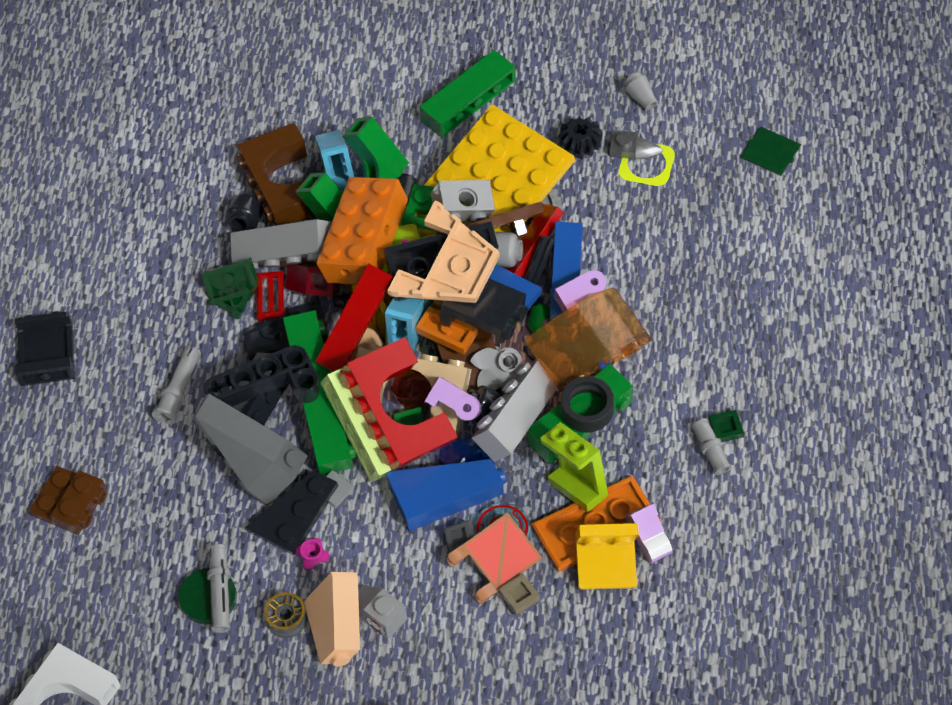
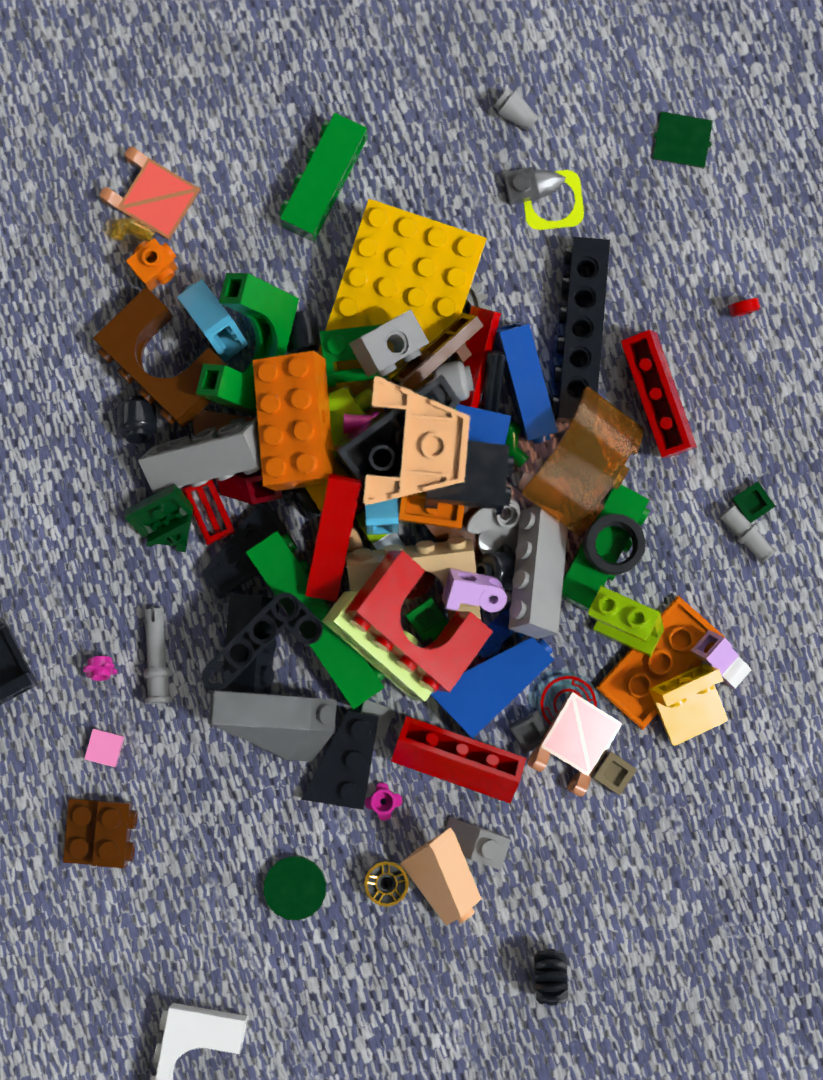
camera: 25 degrees left, 25 degrees up
(104, 439) = (104, 747): none -> bright pink tile
(129, 377) = (99, 668): none -> dark pink plate
(218, 579) = (302, 872): light grey pin -> none
(302, 85) = (130, 226): none -> clear yellow arm
(307, 111) = (153, 263): none -> orange brick
(332, 73) = (155, 197): none -> coral flag
(388, 535) = (458, 759): none -> red brick
(579, 289) = (554, 407): lavender leg -> none
(580, 136) = (474, 203): black gear -> none
(662, 207) = (594, 255): none -> black brick
(674, 317) = (658, 394): none -> red brick
(774, 278) = (744, 307): none -> red tile

